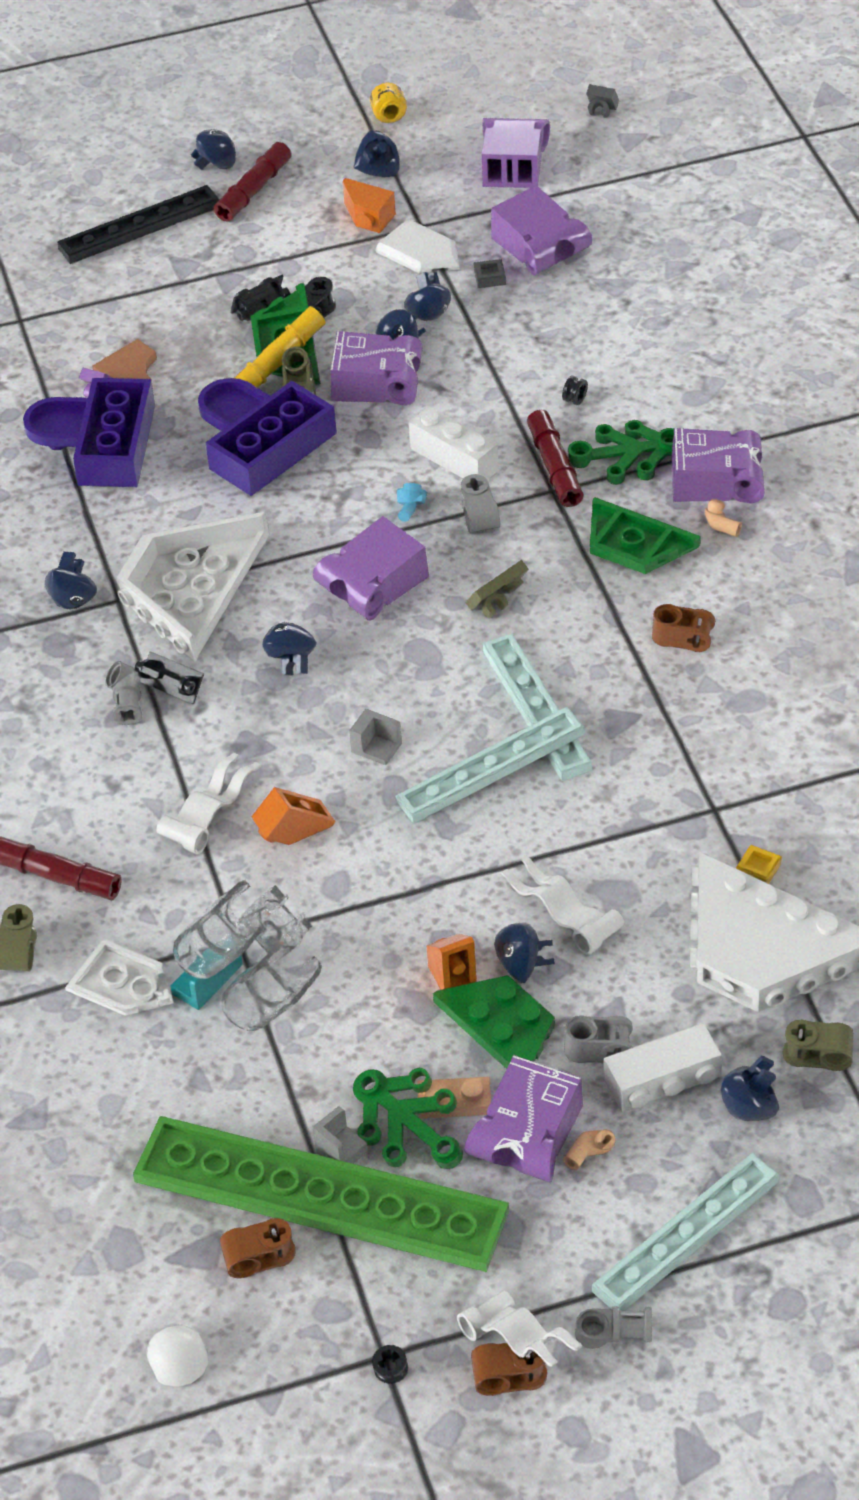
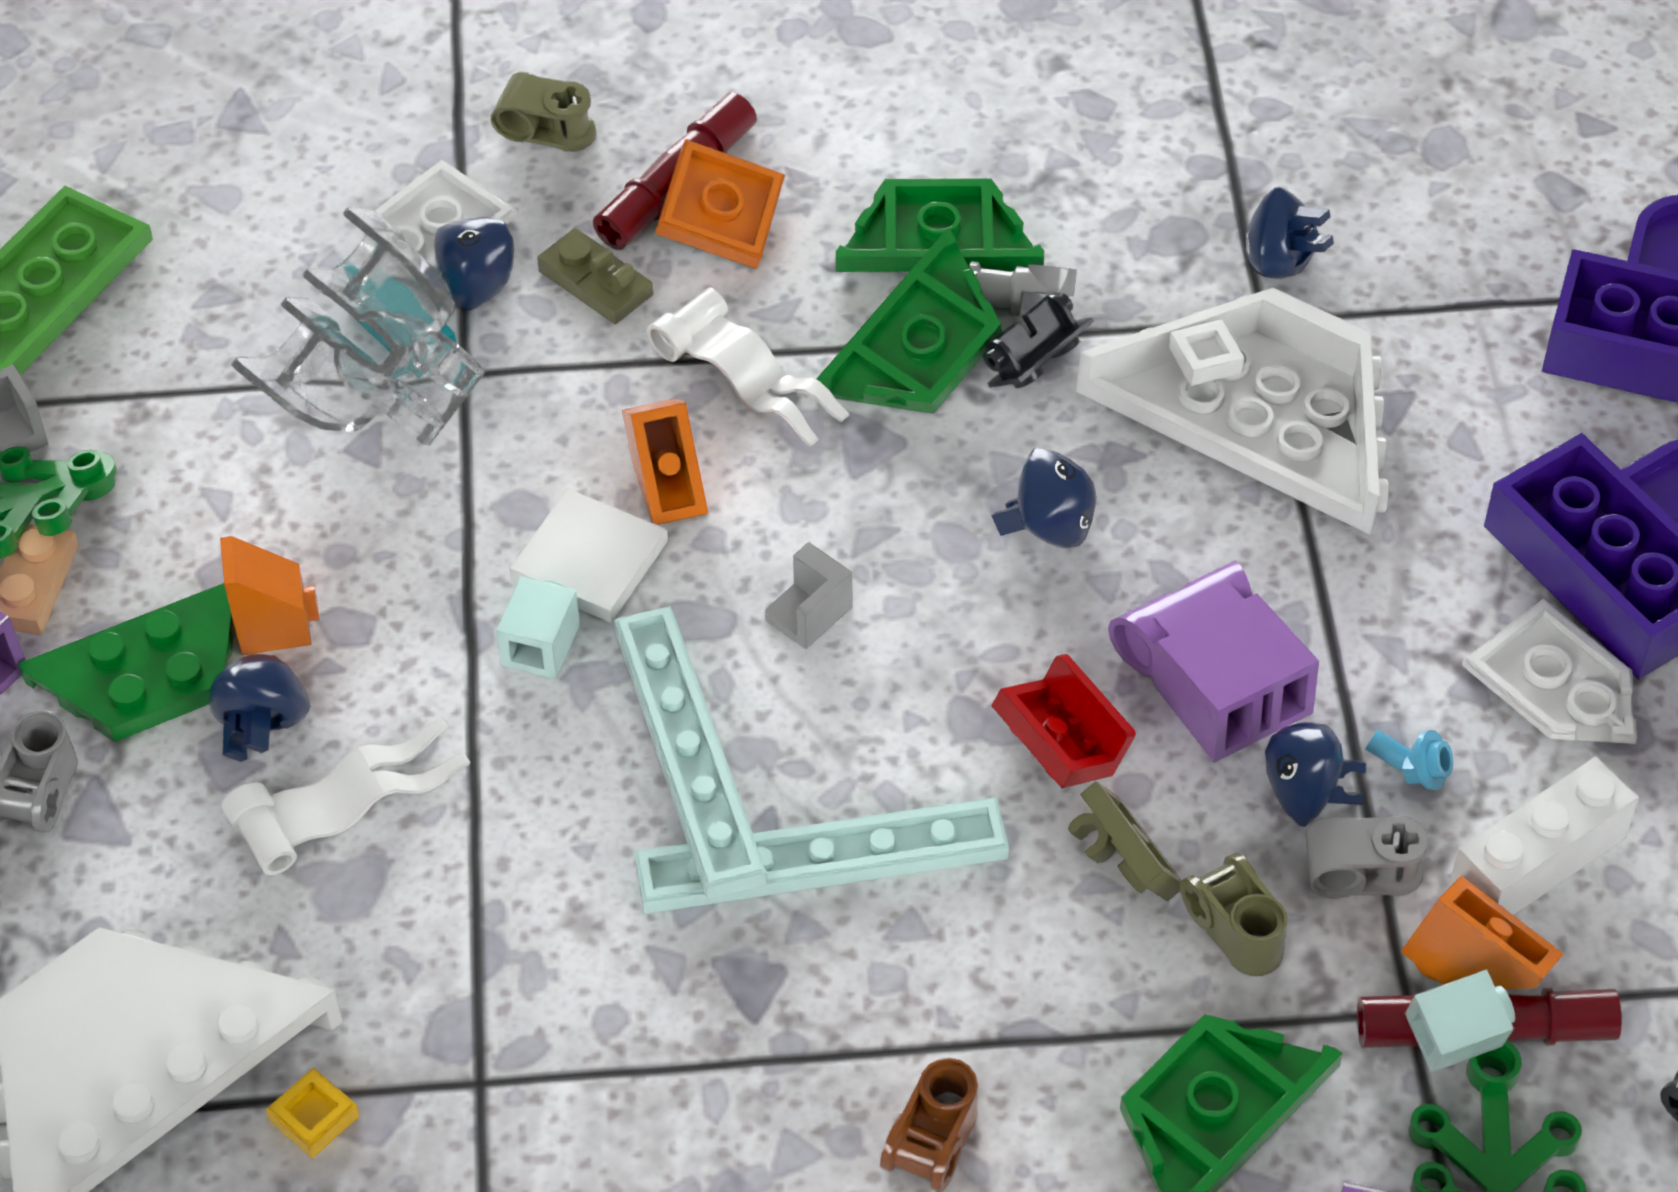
camera: 100 degrees right, 5 degrees up
(82, 739) = (915, 212): none -> green wing
(85, 834) = (720, 204): none -> orange tile
(147, 891) = (595, 275): none -> olive plate
(156, 934) = (474, 259): none -> dark blue piece
(172, 595) = (1206, 352): none -> white plate
(175, 722) = (919, 337): none -> green wing
(342, 460) = (1558, 678): none -> white tile
(366, 842) = (591, 551): none -> white tile
(428, 843) = (538, 627): none -> light aqua brick
(431, 620) = (1066, 724): none -> red bracket
(435, 526) = (1305, 770): none -> dark blue piece
(523, 457) = (1474, 933): none -> orange slope
(527, 541) = (1231, 907): none -> olive piece
(574, 449) = (1460, 1020): none -> light aqua brick

